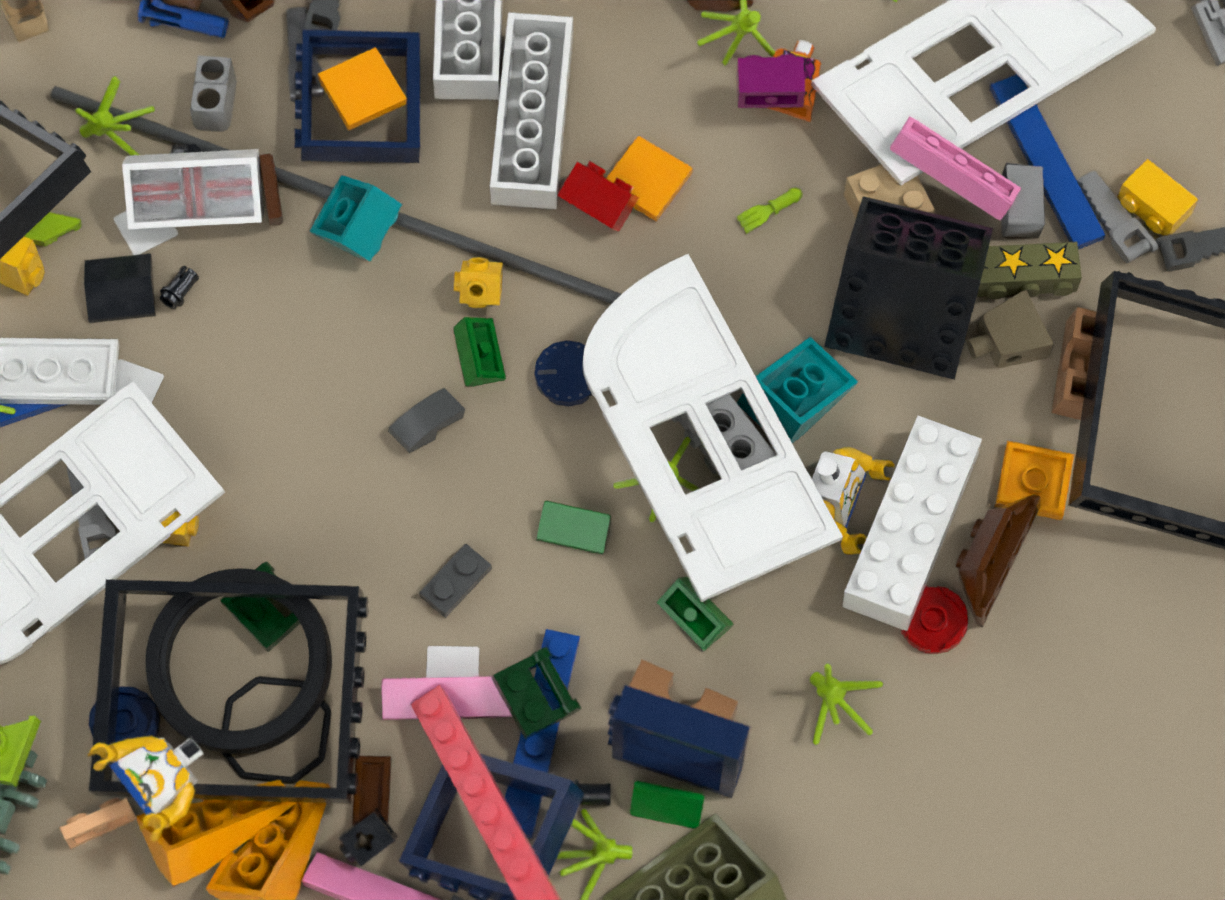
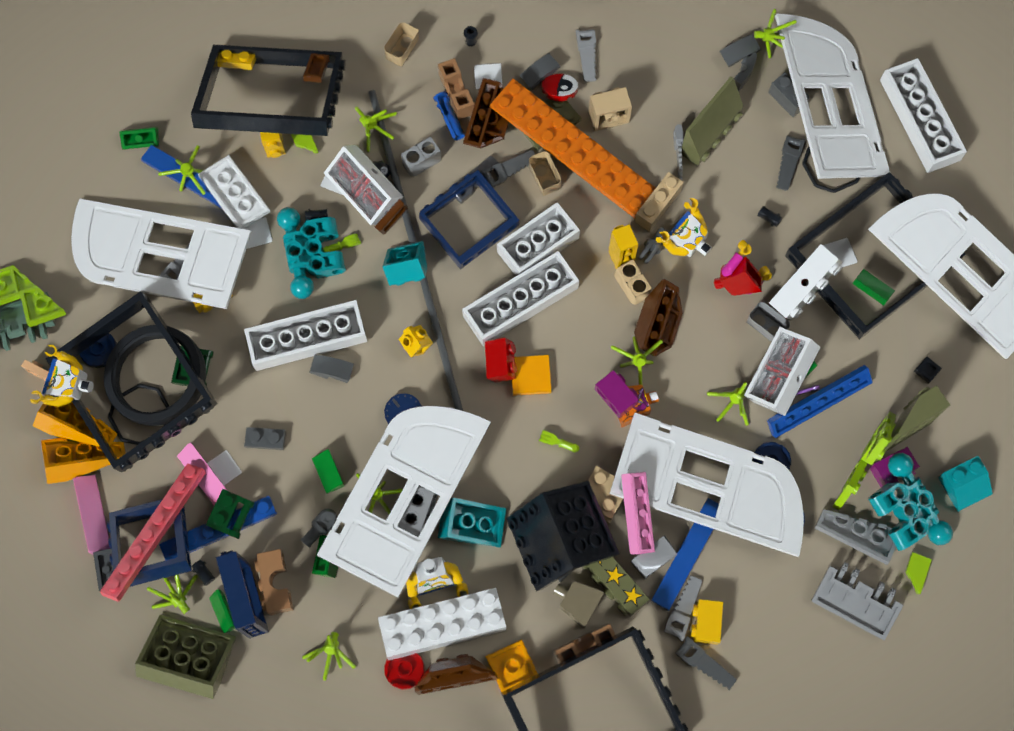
camera: 55 degrees right, 5 degrees up
(119, 288) = (298, 190): black slope -> none
(238, 350) = (298, 264): none -> teal connector
(254, 274) = (349, 241): none -> lime piece
(352, 418) = (305, 335): none -> white brick
(362, 88) = (468, 217): light orange tile -> none
(371, 823) = (112, 491): black brick -> none
(372, 787) = (139, 477): reddish brown tile -> none
(478, 351) = (385, 366): green slope -> none
(646, 587) = (320, 525): none -> dark grey arm

